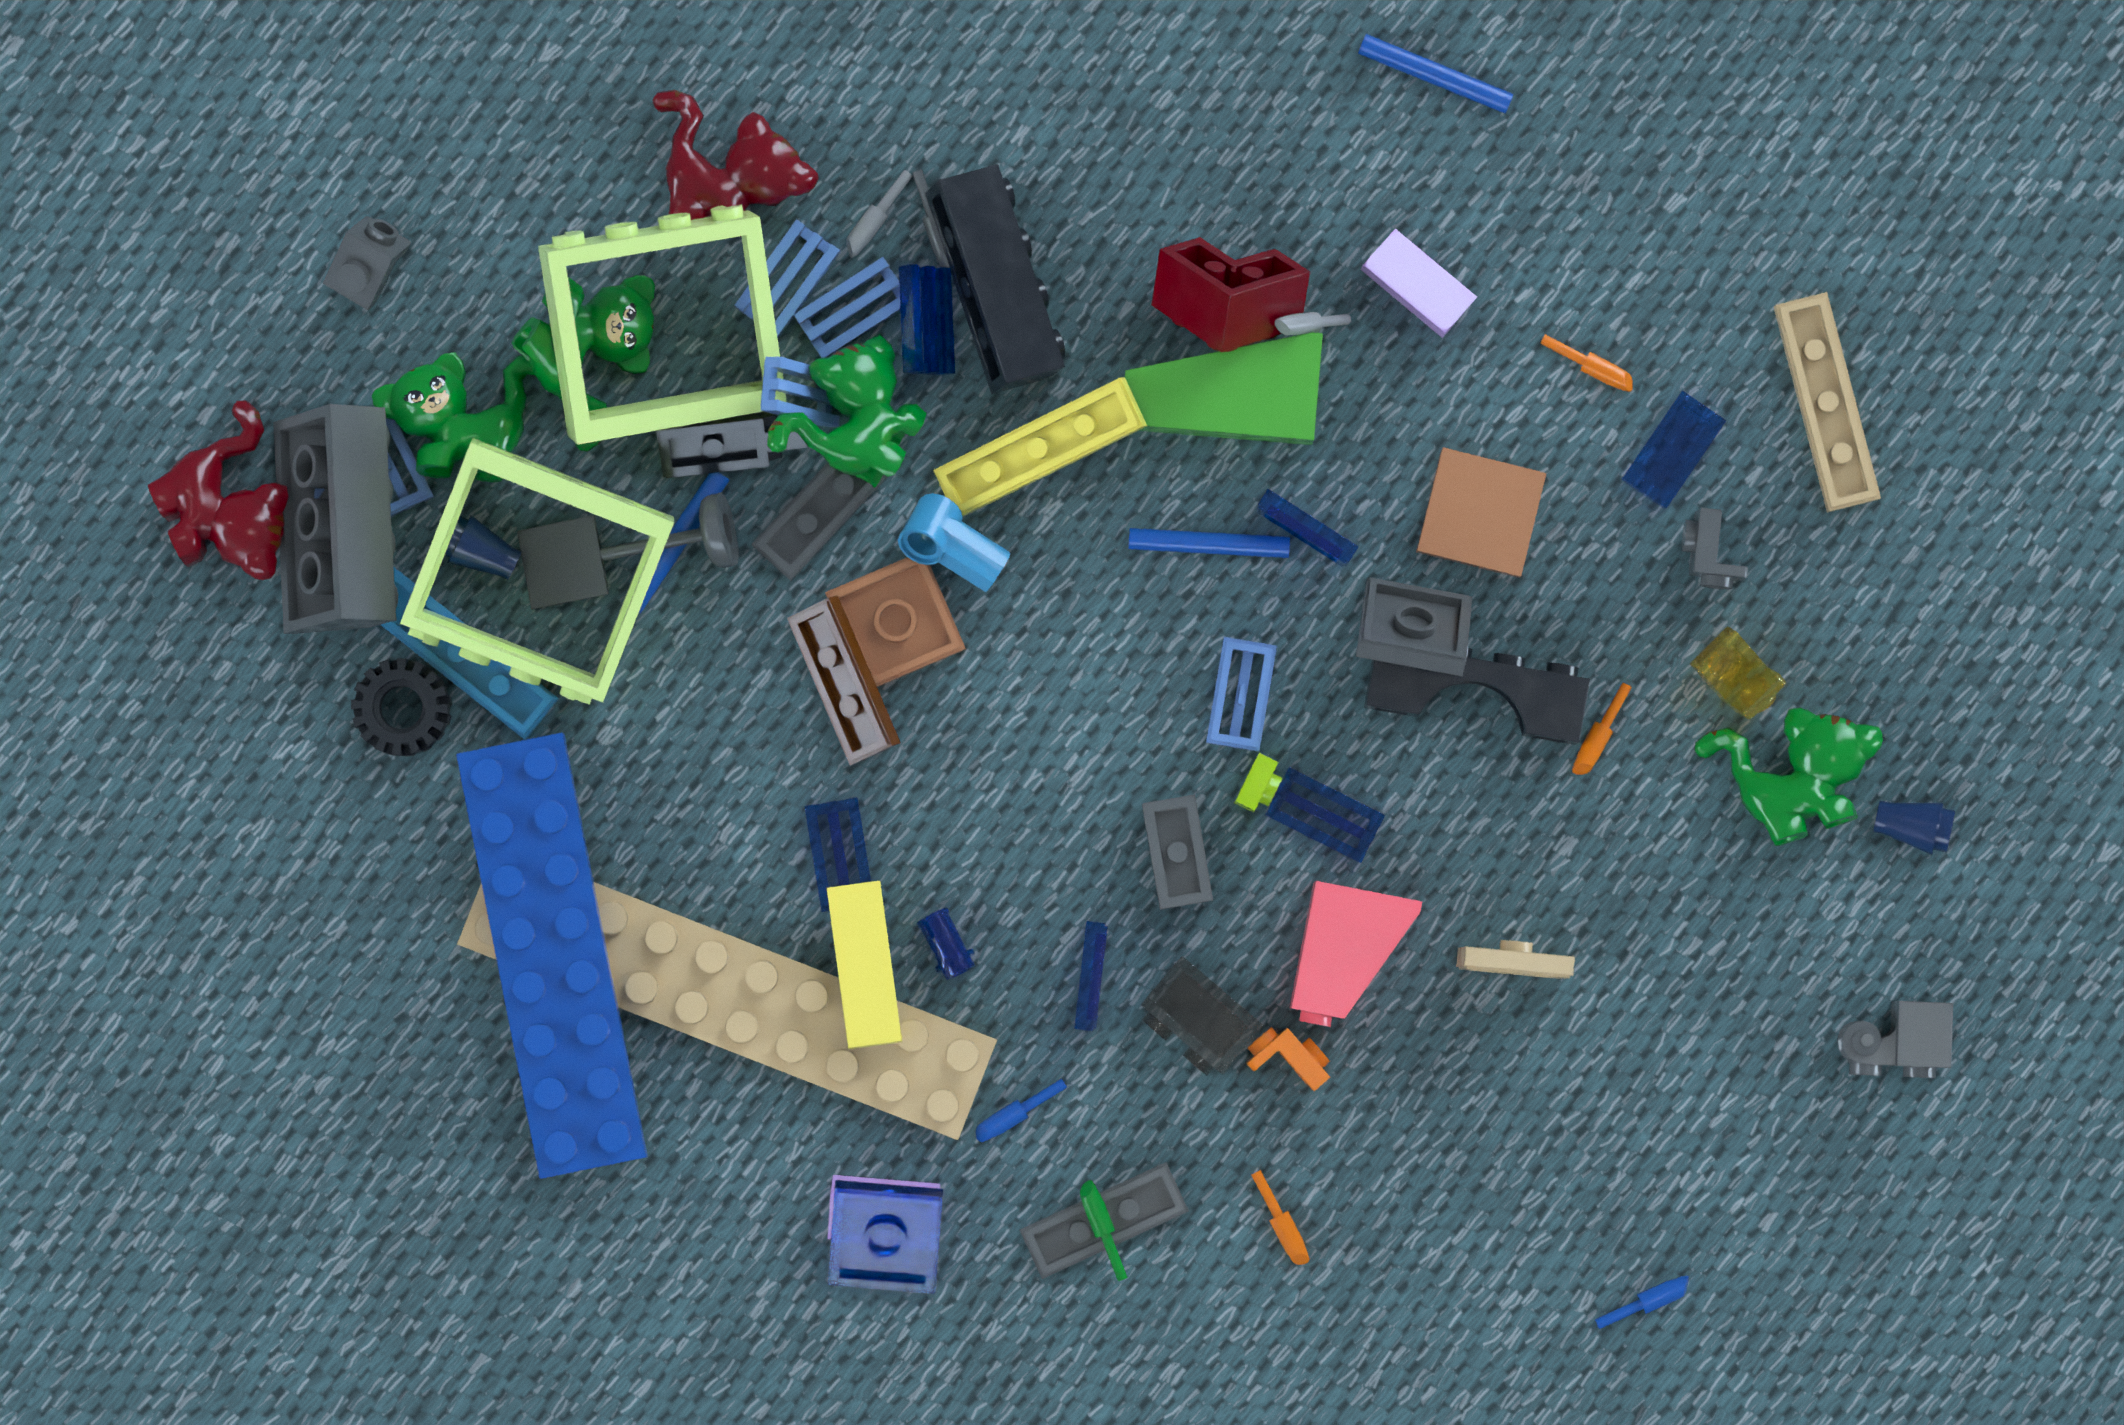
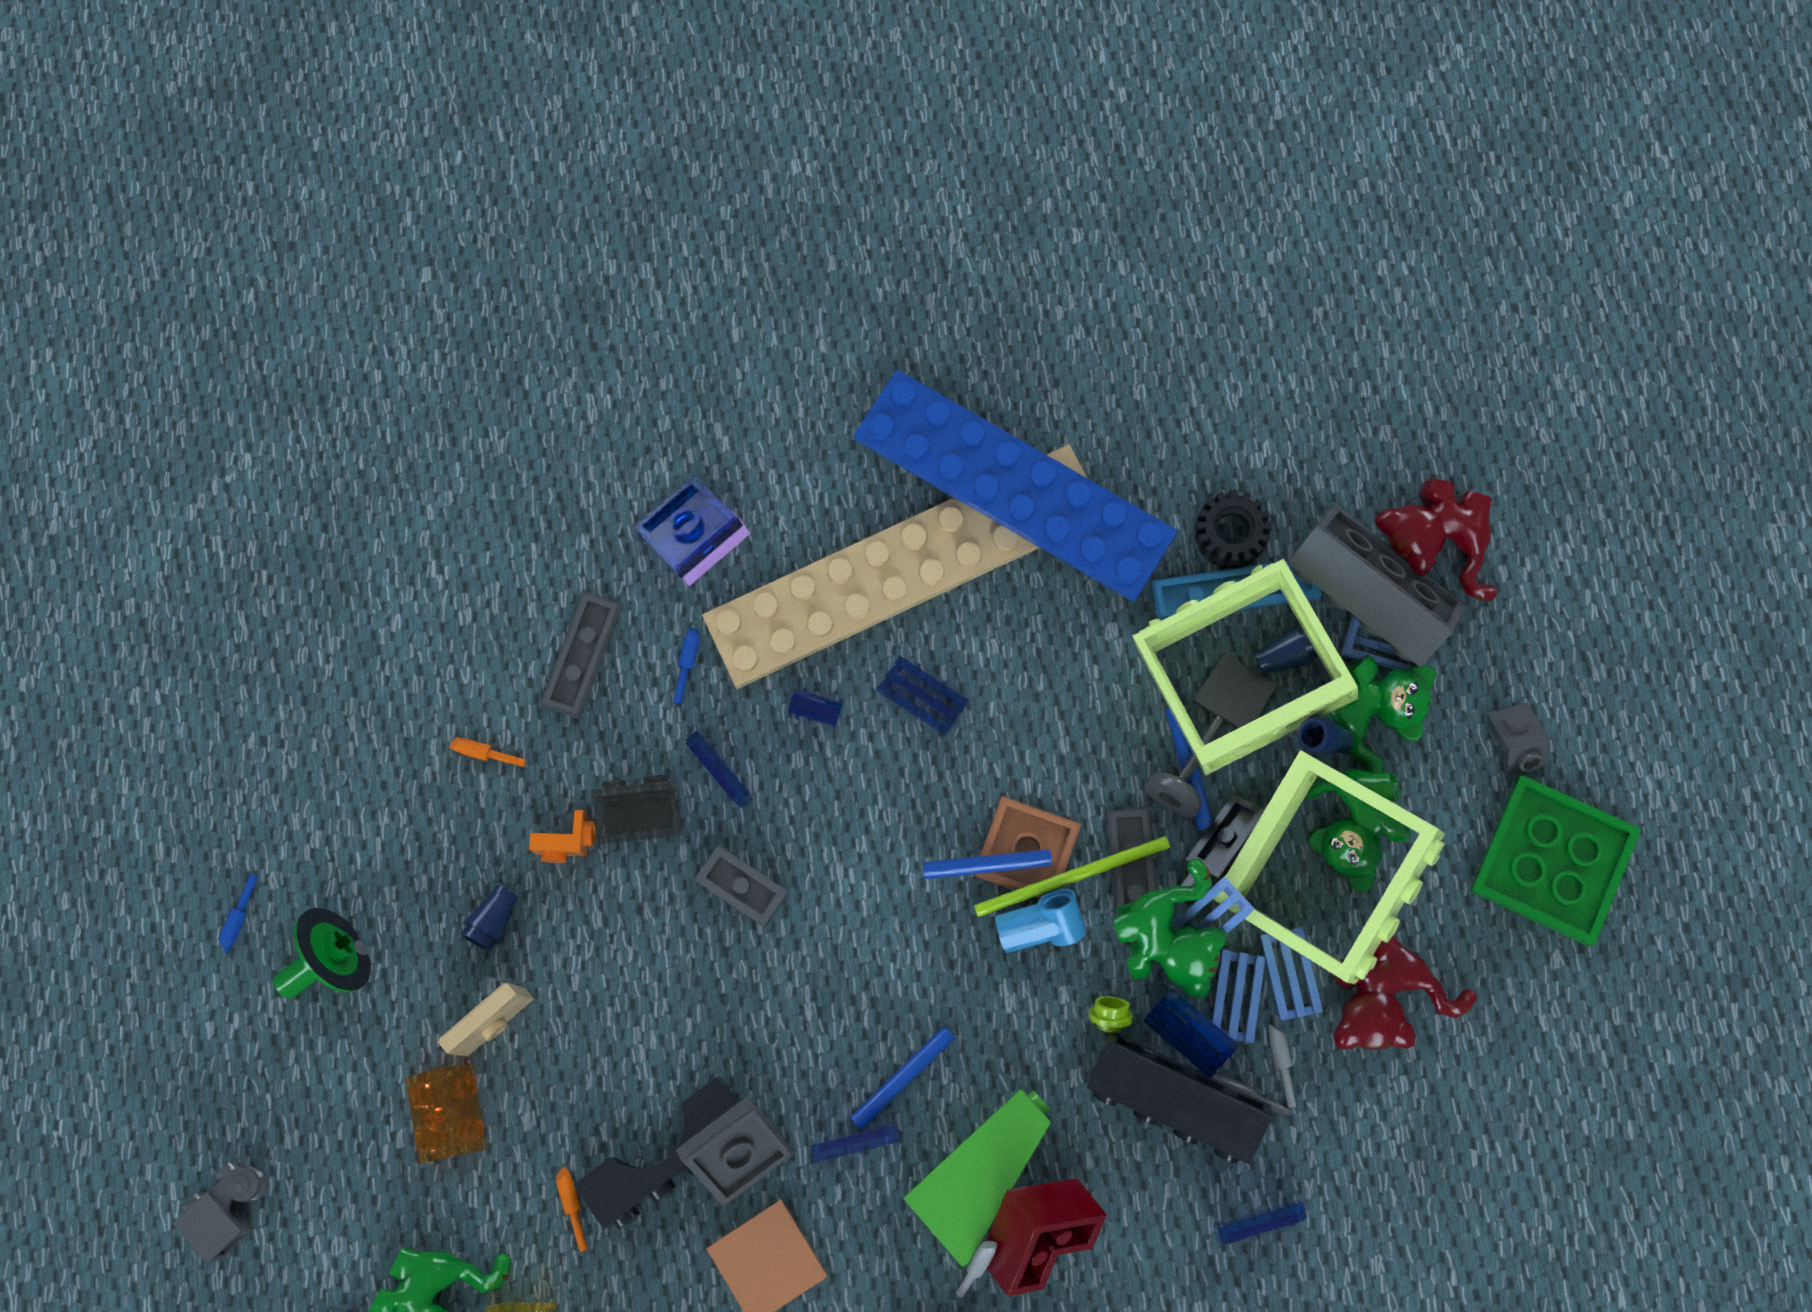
camera: 140 degrees right, 10 degrees down
(457, 131) = (1555, 860): none -> green plate
(542, 436) = (1323, 736): none -> dark blue cone
(843, 680) = (1020, 787): tile -> none
(864, 965) = (846, 648): light yellow tile -> none
(883, 555) = (1071, 876): none -> lime axle
(945, 642) = (987, 864): none -> blue bar
(976, 406) = (1111, 1014): none -> lime plate
(1039, 112) = (1260, 1222): none -> clear blue tile
(1041, 447) = (1050, 1029): light yellow tile -> none
(1101, 1225) = (578, 648): green piece -> none
(1234, 739) = (818, 1041): medium blue tile -> none
(1259, 784) = (734, 970): lime plate -> none
(1344, 947) = (593, 931): coral slope -> none
(1365, 835) = (646, 1005): clear blue tile -> none
(1425, 1057) = (489, 919): none -> dark blue cone
(1596, 1170) = (327, 953): none -> piece
(1631, 924) = (446, 1113): none -> clear orange bracket

